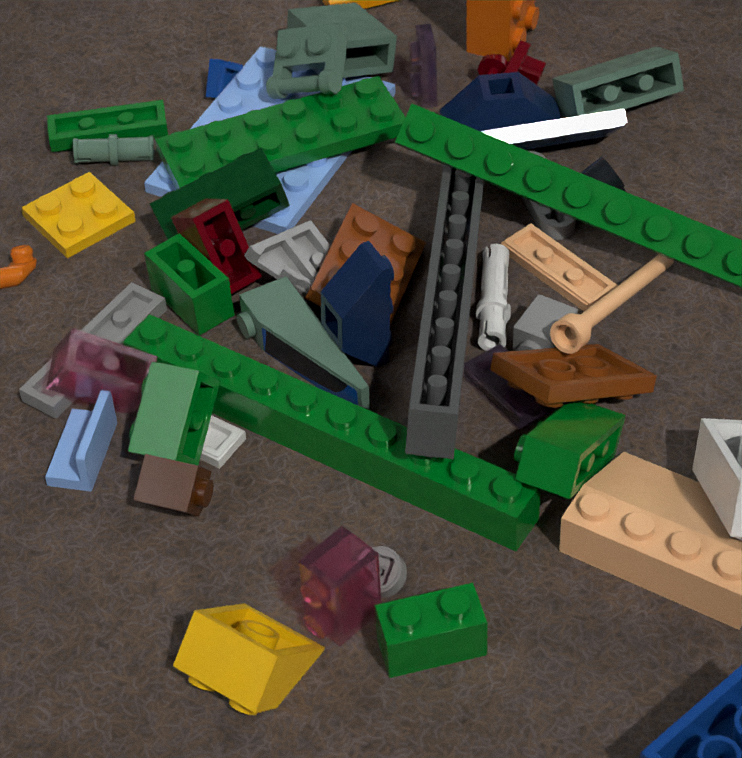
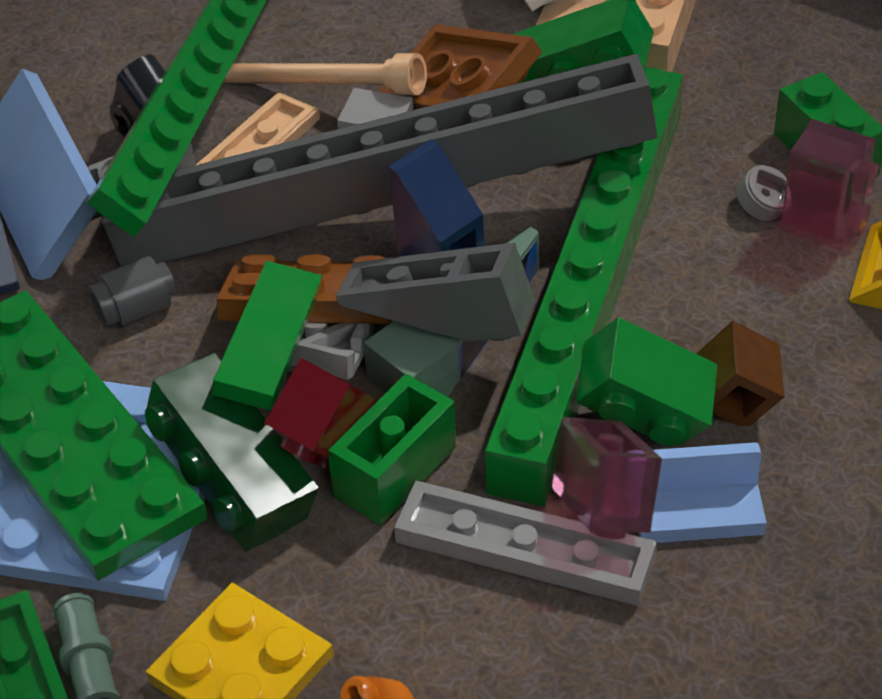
camera: 105 degrees left, 0 degrees up
(284, 302) = (450, 293): none -> dark grey slope
(288, 209) = (267, 336): none -> green tile
(407, 184) = (132, 292): none -> dark grey brick

